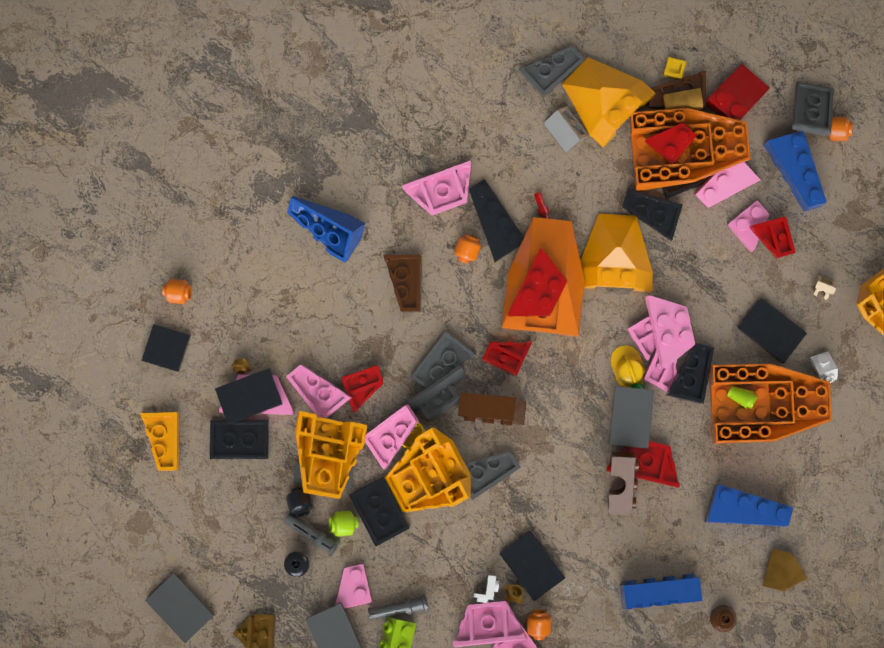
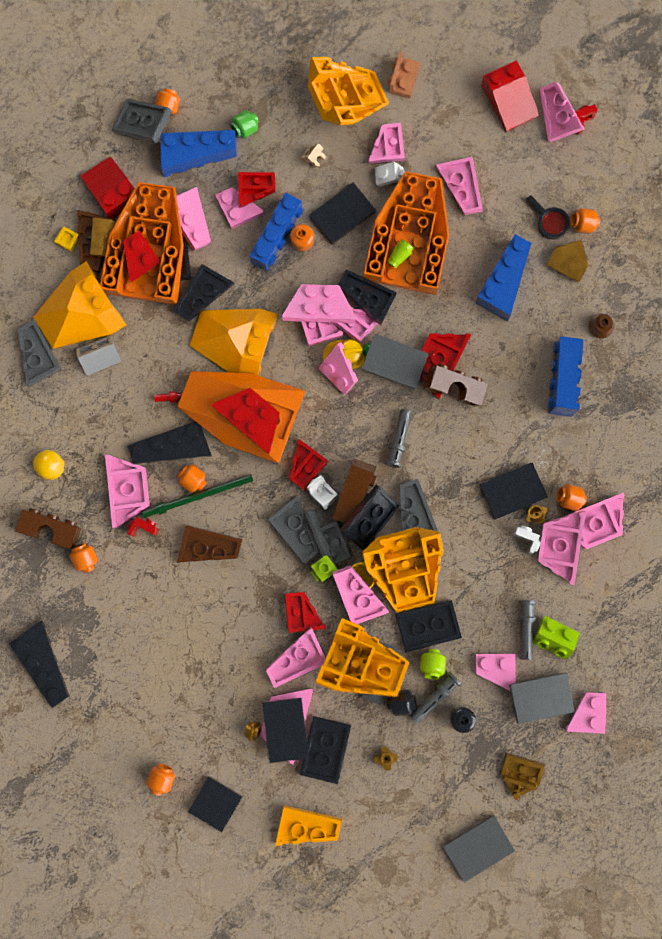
camera: 75 degrees left, 0 degrees up
(241, 493) = (386, 753): none -> pearl gold plate
(263, 149) = (37, 657): none -> black wing
(333, 228) = (137, 605): blue wedge -> none
(366, 166) = (83, 557): none -> orange head
(385, 143) = (31, 524): none -> reddish brown arch
(409, 395) = (323, 569): none -> lime bracket
(411, 218) = (148, 525): none -> red bracket
(432, 228) = (162, 507): none -> dark green bar
(447, 110) = (48, 464): none -> yellow hair
(470, 429) = (370, 517): none -> black tile
(484, 377) = (322, 492): none -> white bracket
(543, 440) = (397, 448): none -> dark grey pin
(609, 364) = (339, 369): none -> bright pink wing
(729, 299) = (302, 237): none -> orange head
(734, 269) = (276, 231): none -> blue brick
(819, 545) = (552, 222): none -> piece
(828, 577) = (585, 220): none -> orange head
(835, 444) = (462, 183): none -> bright pink wing
(837, 210) = (245, 124): none -> bright green head
(855, 359) = (388, 145): none -> bright pink wing

